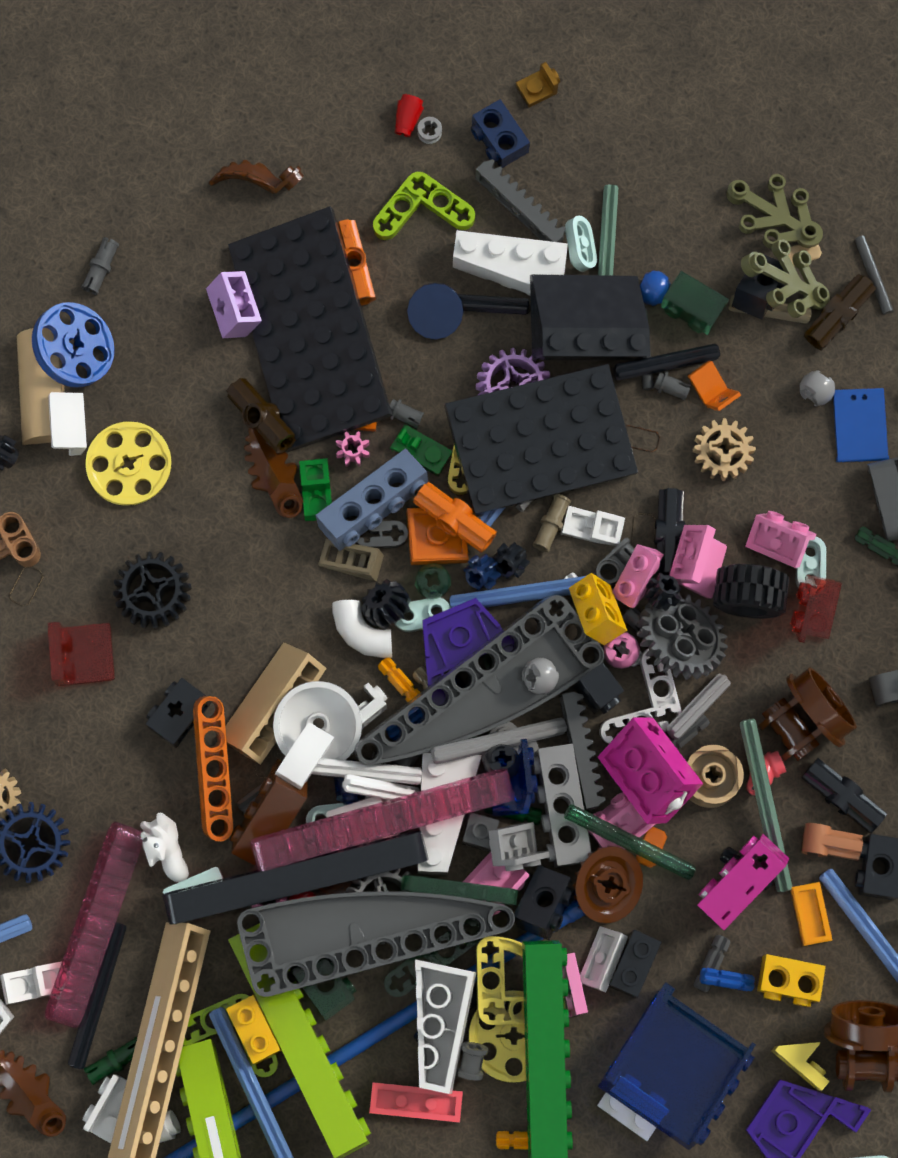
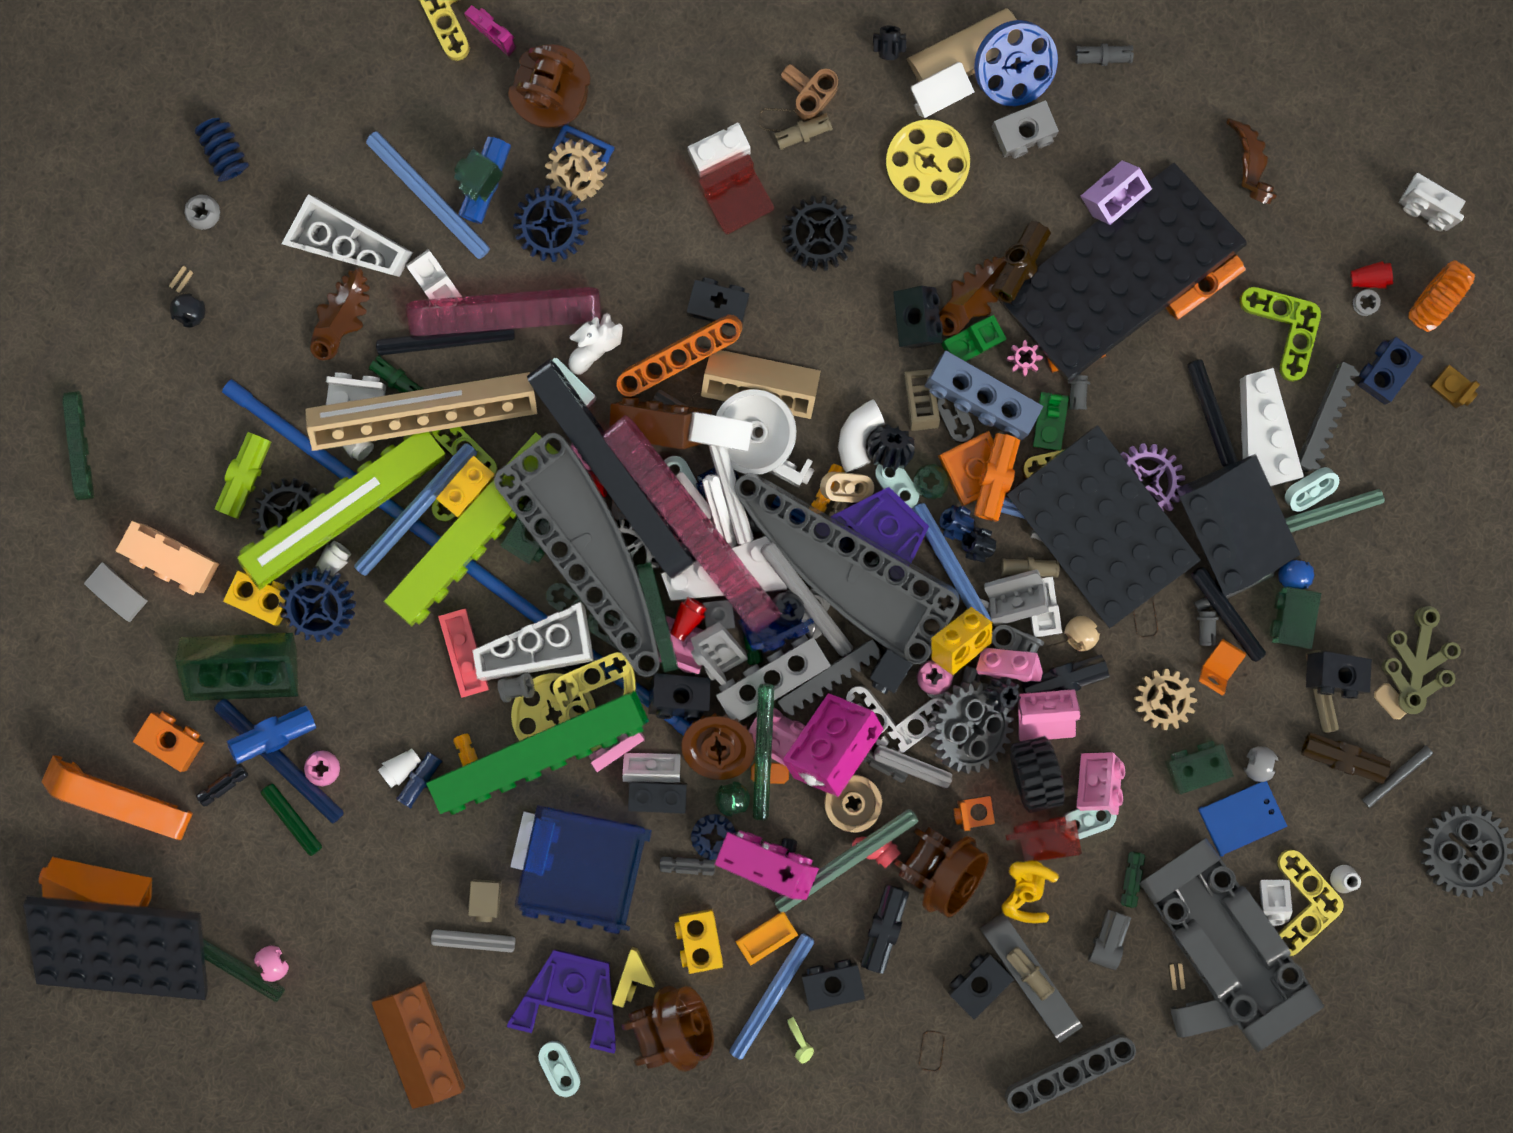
camera: 70 degrees right, 10 degrees up
(30, 651) = (719, 150): none -> white brick
(48, 566) = (803, 131): none -> dark tan pin
(135, 347) = (1035, 117): none -> light grey brick
(258, 535) = (908, 306): none -> black brick
(365, 38) = (1432, 203): none -> white bracket
(403, 665) = (845, 487): none -> tan plate
(435, 310) = (1188, 380): dark blue tile -> none
(452, 62) = (1441, 296): none -> orange gear
(471, 861) = (687, 618): none -> red cone
(540, 676) = (877, 612): light grey piece -> none
(575, 544) = (1017, 597): none -> light grey bracket
(632, 499) = (1082, 633): none -> tan piece
(663, 891) = (732, 799): none -> clear green piece
(679, 928) = (705, 825): none -> dark blue gear
(727, 979) = (677, 884): blue axle -> none
(761, 677) = (963, 816): none -> orange bracket
(799, 444) = (1199, 767): none -> clear green brick
(815, 293) = (1354, 727): olive plant -> none
(829, 842) = (836, 927): nougat piece -> none
(855, 644) = (1029, 887): none -> yellow piece

